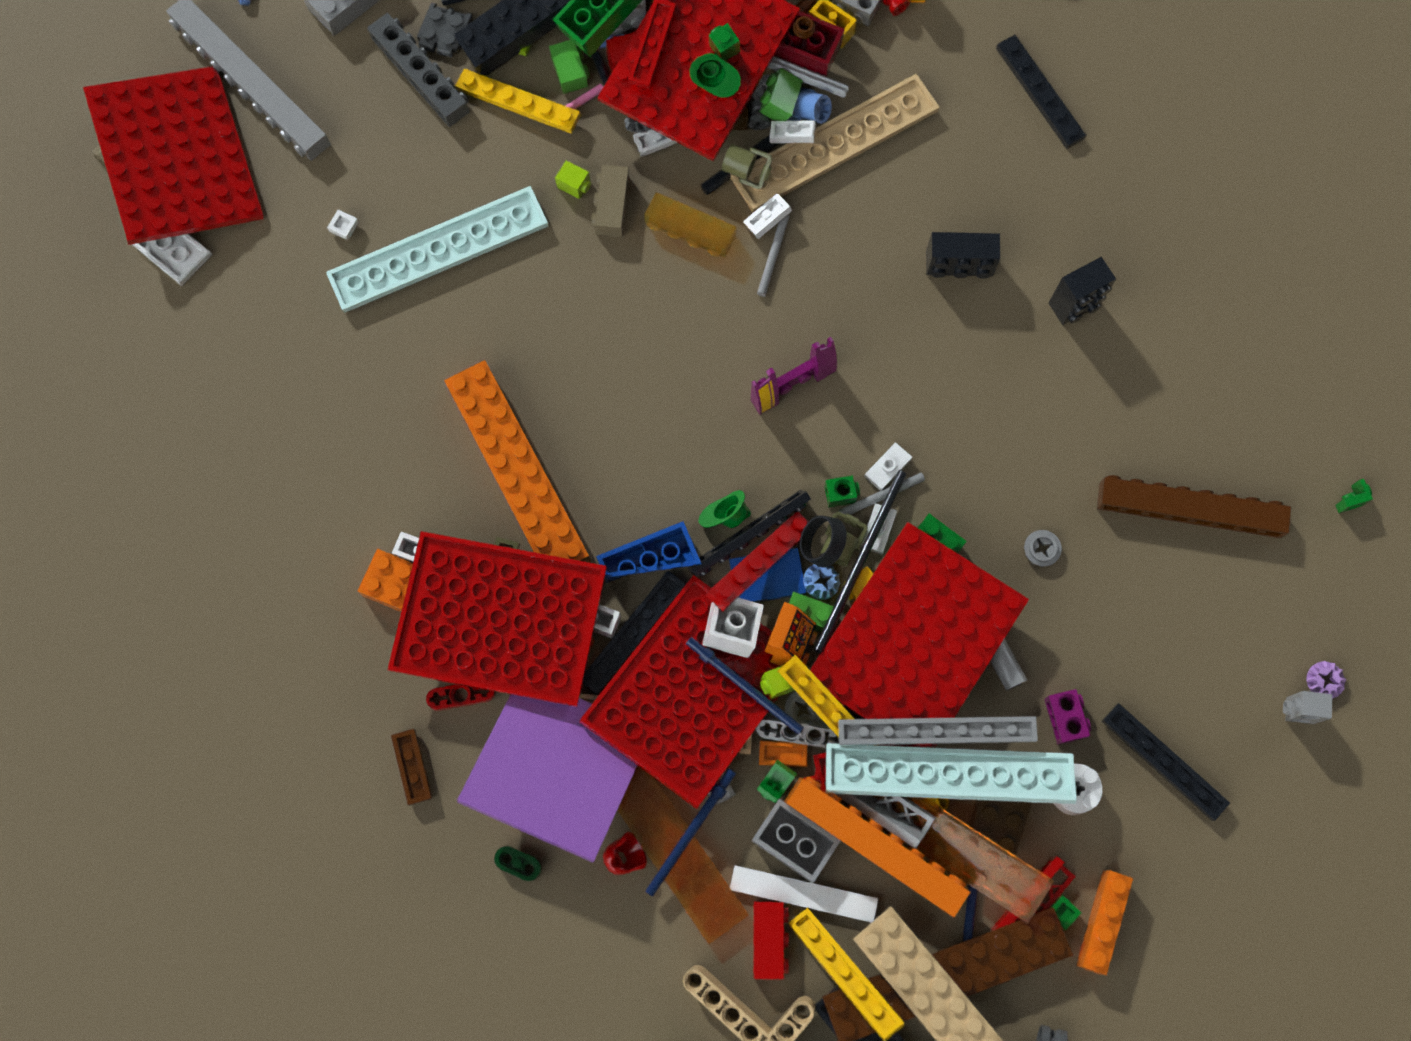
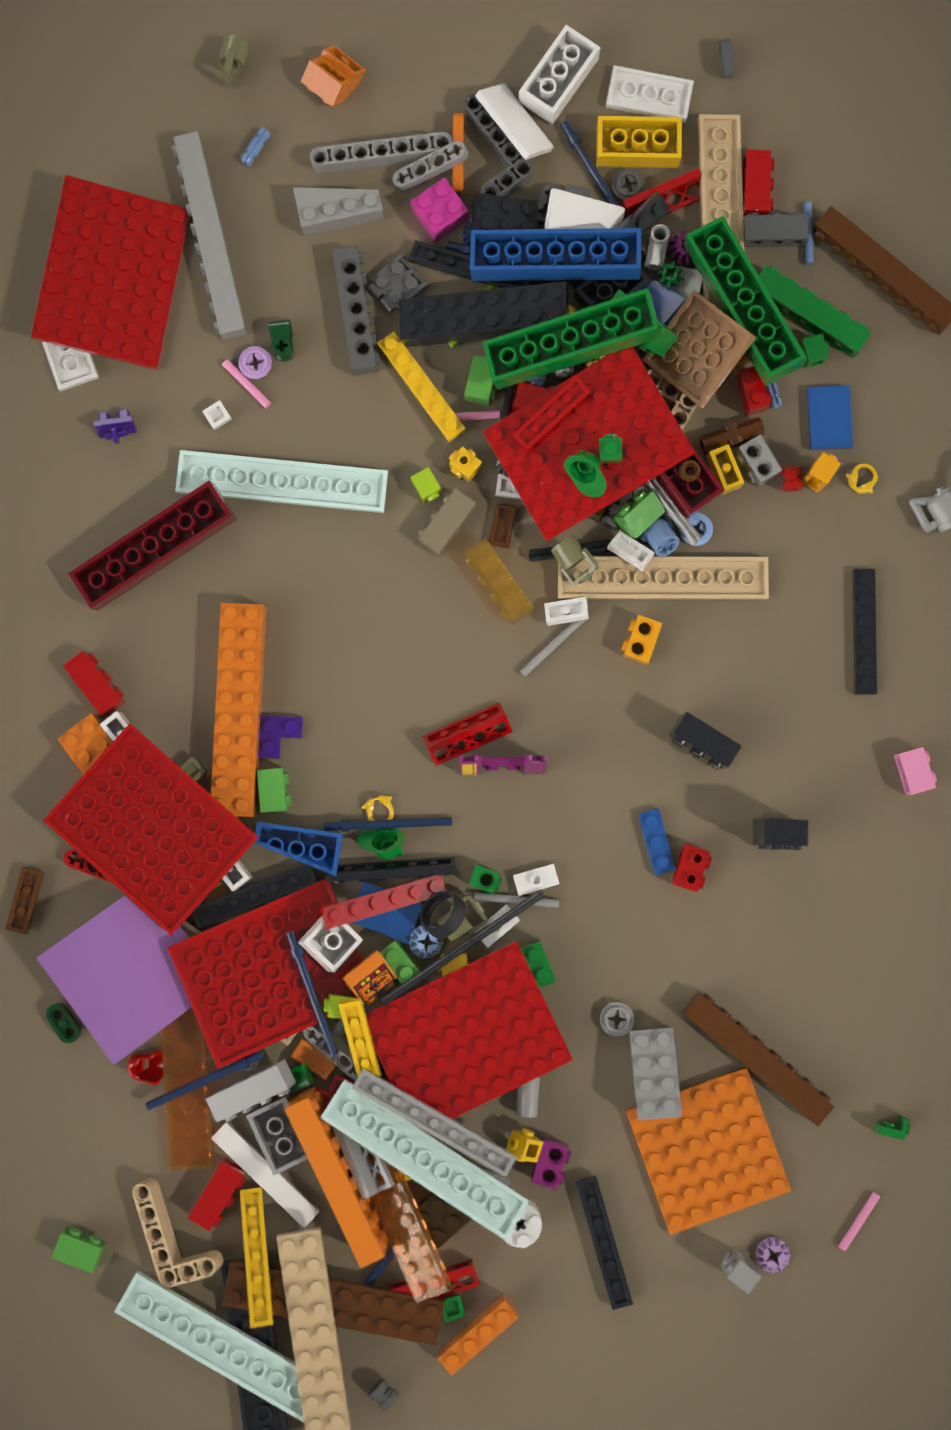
camera: 30 degrees right, 10 degrees up
(251, 285) = (115, 427): none -> dark purple hips
(349, 366) = (152, 546): none -> dark red brick
(353, 153) = (246, 359): none -> lavender gear
(356, 185) = (246, 384): none -> bright pink bar
(364, 523) = (94, 683): none -> red brick
(365, 129) = (281, 337): none -> dark green piece
(562, 468) = (273, 729): none -> dark purple plate
(593, 525) = (273, 790): none -> bright green brick
(597, 141) = (466, 470): none -> yellow brick
(663, 177) = (502, 526): none -> reddish brown tile
(705, 476) = (386, 800): none -> yellow piece
(721, 493) = (347, 825): none -> dark blue bar
(738, 369) = (466, 729): none -> red fence
(741, 816) = (250, 1091): none -> light grey brick
(844, 78) = (705, 527): none -> light blue gear
(854, 203) = (647, 641): none -> light orange brick
(976, 370) = (656, 841): none -> blue plate
(1022, 373) = (691, 868): none -> red brick
(1032, 707) = (524, 1145): none -> yellow brick
(1110, 573) = (655, 1074): none -> light grey brick
(1162, 179) = (915, 771): none -> bright pink brick
(1203, 620) = (713, 1155): none -> orange plate
(1382, 602) = (859, 1221): none -> bright pink bar

